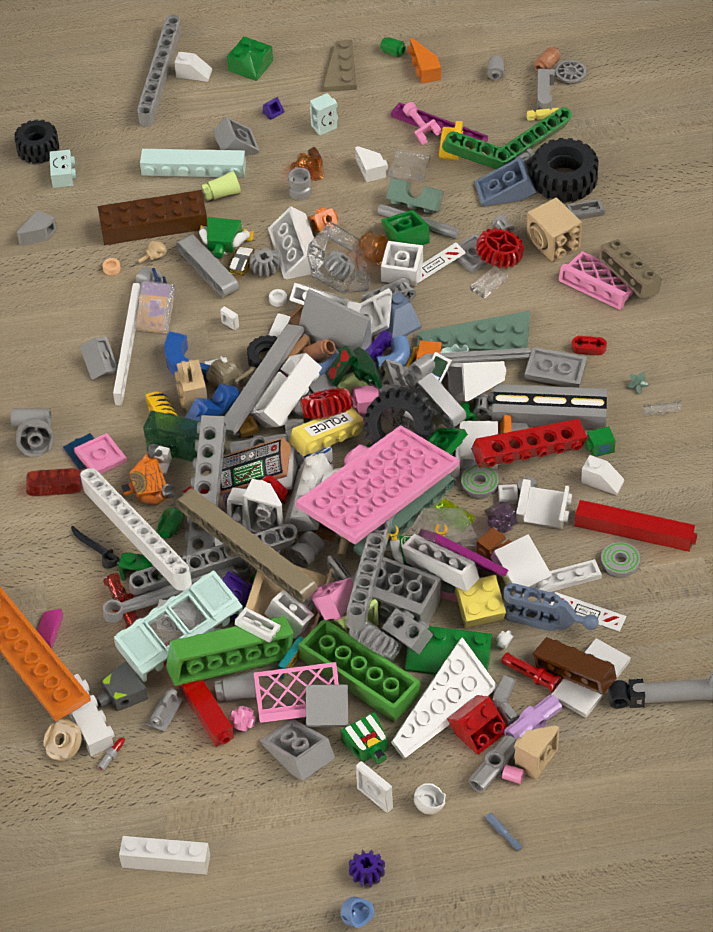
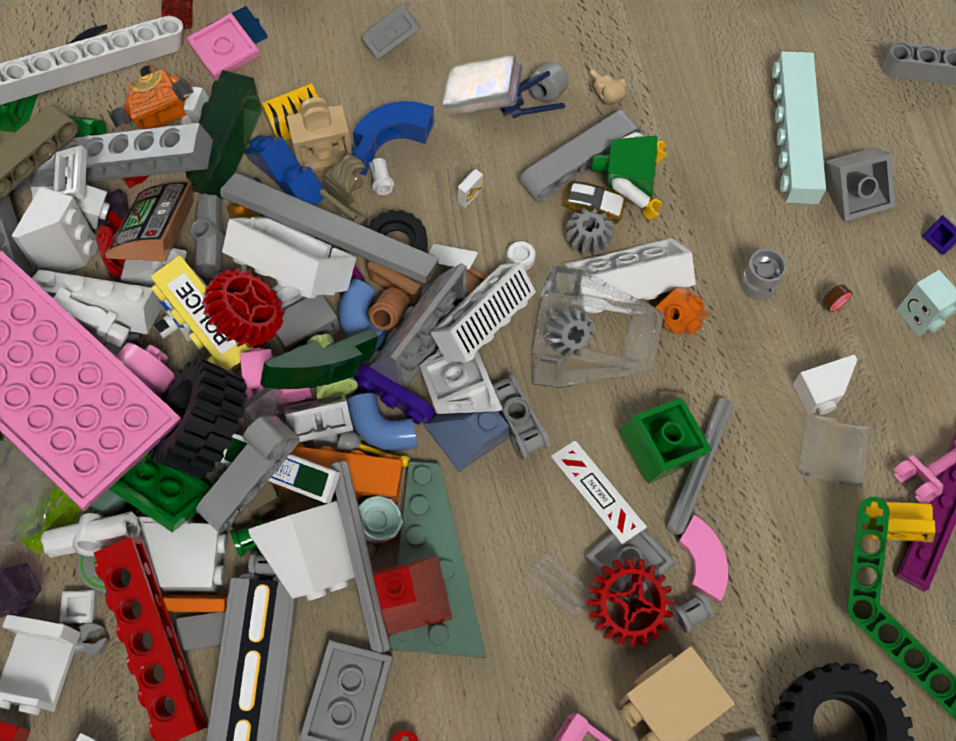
camera: 85 degrees right, 15 degrees up
(111, 266) = (581, 39): light nougat tile -> none
(127, 345) = (401, 61): white tile -> none
(152, 217) = (676, 80): reddish brown brick -> none
(221, 187) = (749, 167): yellowish green plant -> none
(226, 504) = (74, 172): none -> white tile
(312, 164) = (810, 286): clear orange piece -> none
(341, 365) = (332, 331): dark green tile -> none
(373, 246) = (622, 390): clear orange hair -> none
(400, 192) = (755, 432): sand green arch -> none
(402, 261) = (585, 434): white brick -> none
(467, 479) = (90, 534): none -> white piece
(473, 221) = (707, 557): none -> bright pink tile
(502, 323) = (412, 595): none -> red slope
(506, 184) = (799, 619): sand blue slope -> none
(527, 157) = (876, 662): light grey bush -> none

